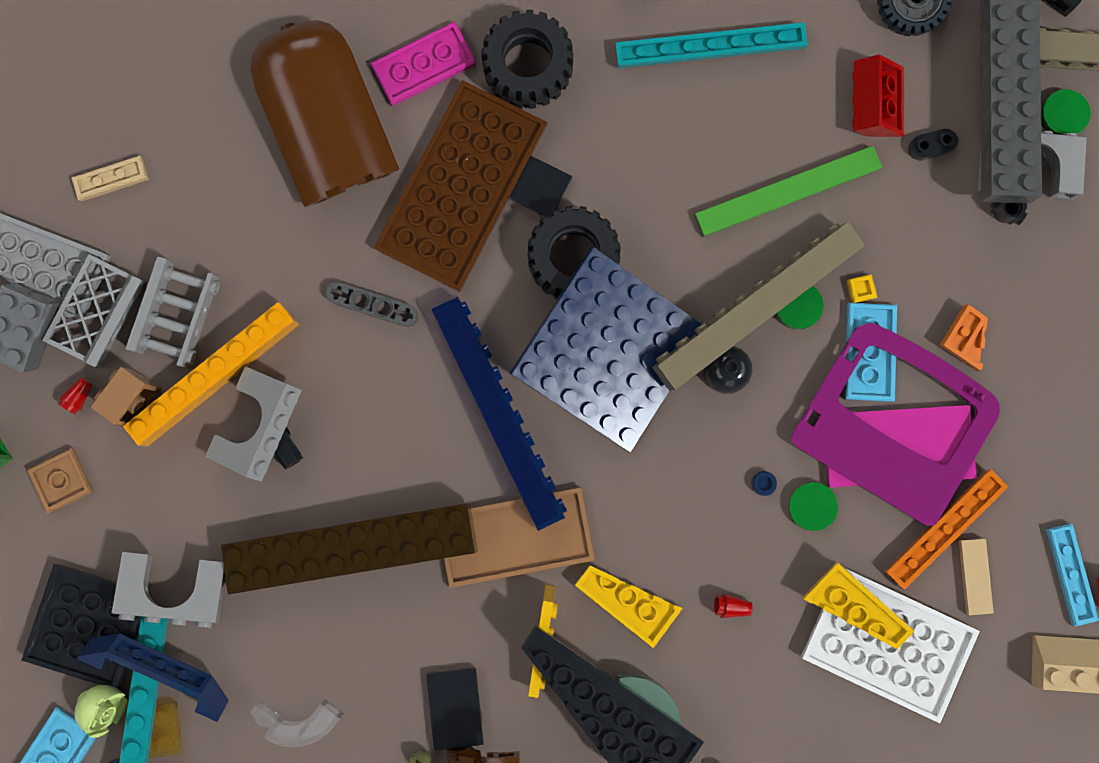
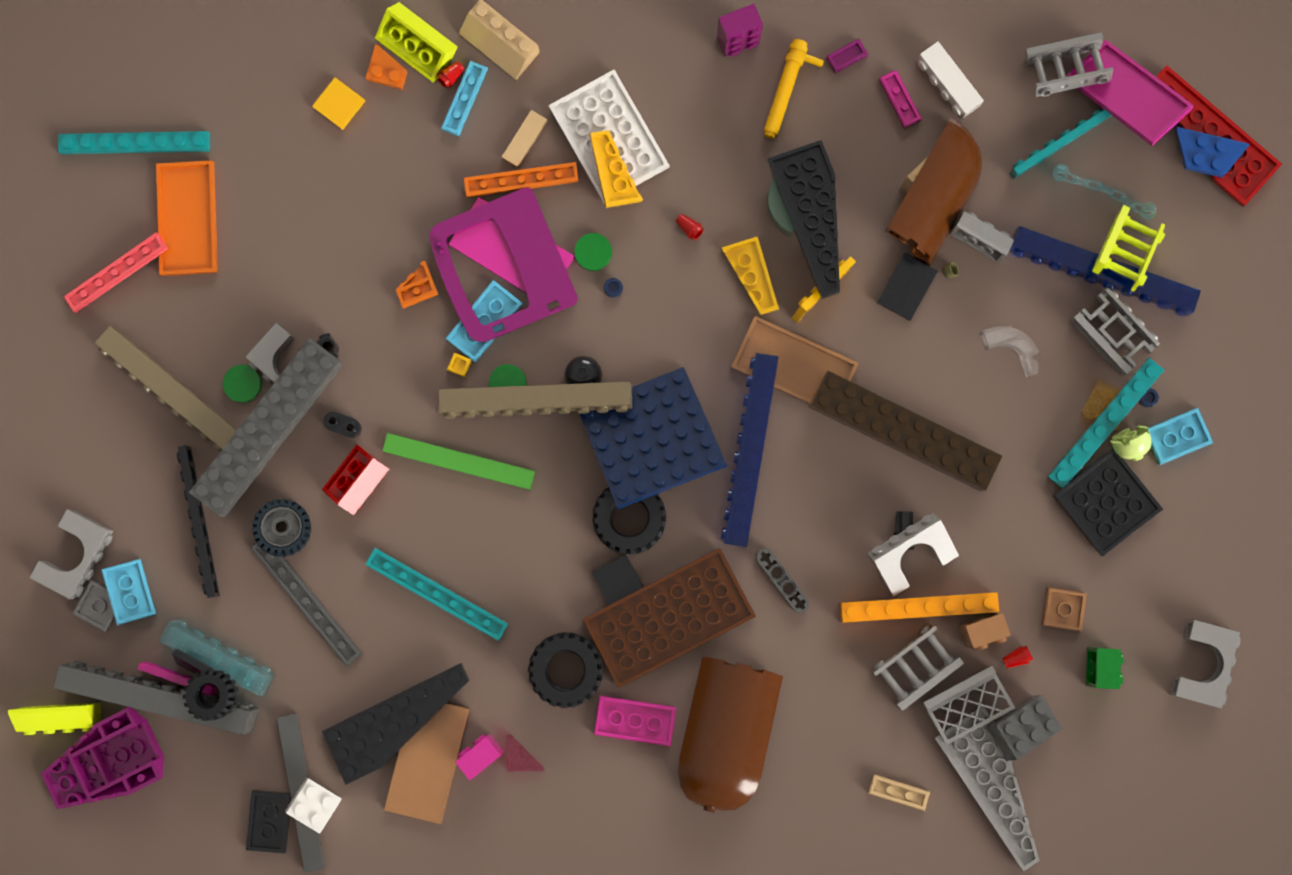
camera: 140 degrees left, 0 degrees up
(134, 599) = (1064, 493): light grey arch -> none
(159, 668) = (1077, 442): dark blue slope -> none

